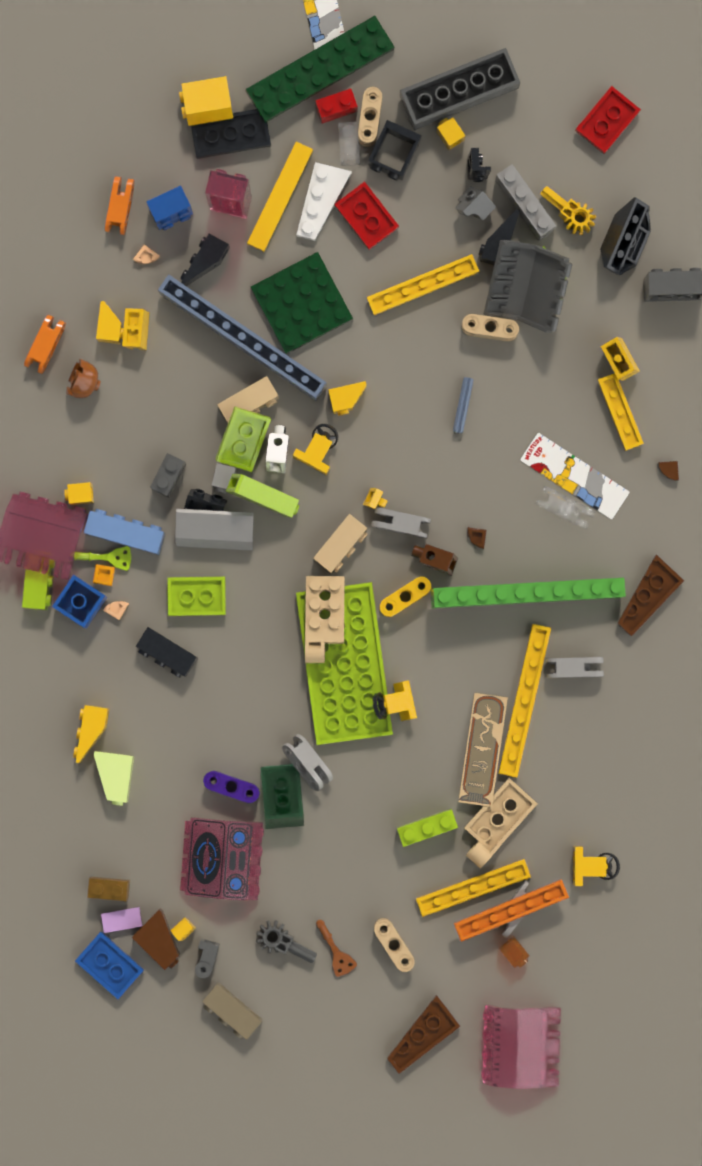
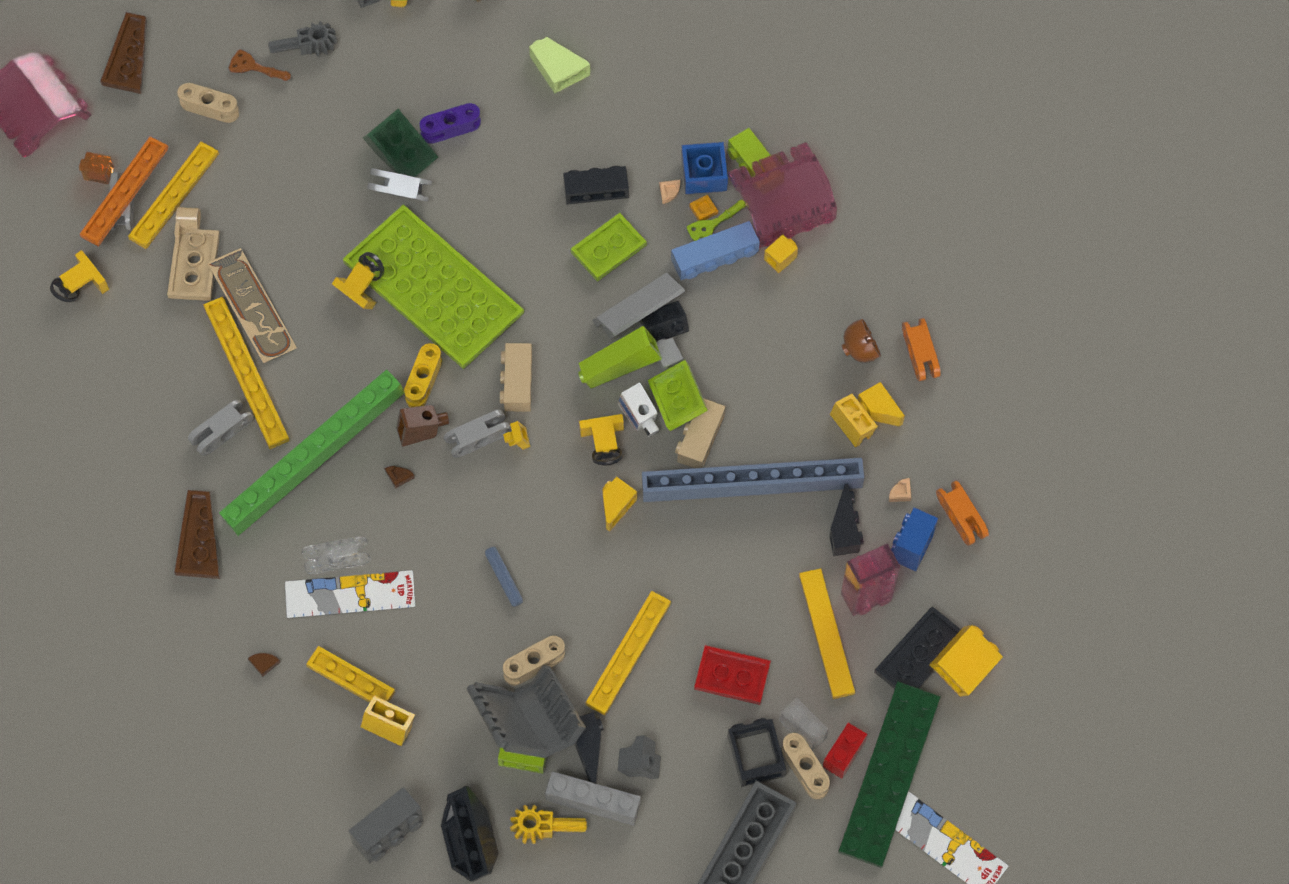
camera: 140 degrees right, 20 degrees down
(93, 725) = (610, 89): yellow slope -> none
(168, 475) = (718, 321): dark grey brick -> none
(222, 859) = (409, 62): clear pink hinge -> none
(301, 303) = (726, 556): dark green plate -> none
(319, 630) = (477, 287): tan hinge -> none
(322, 194) = (790, 666): white wing -> none
(427, 827) = (252, 208): lime brick -> none
(450, 133) = (717, 809): yellow brick -> none
(475, 171) = (664, 786): black bracket -> none

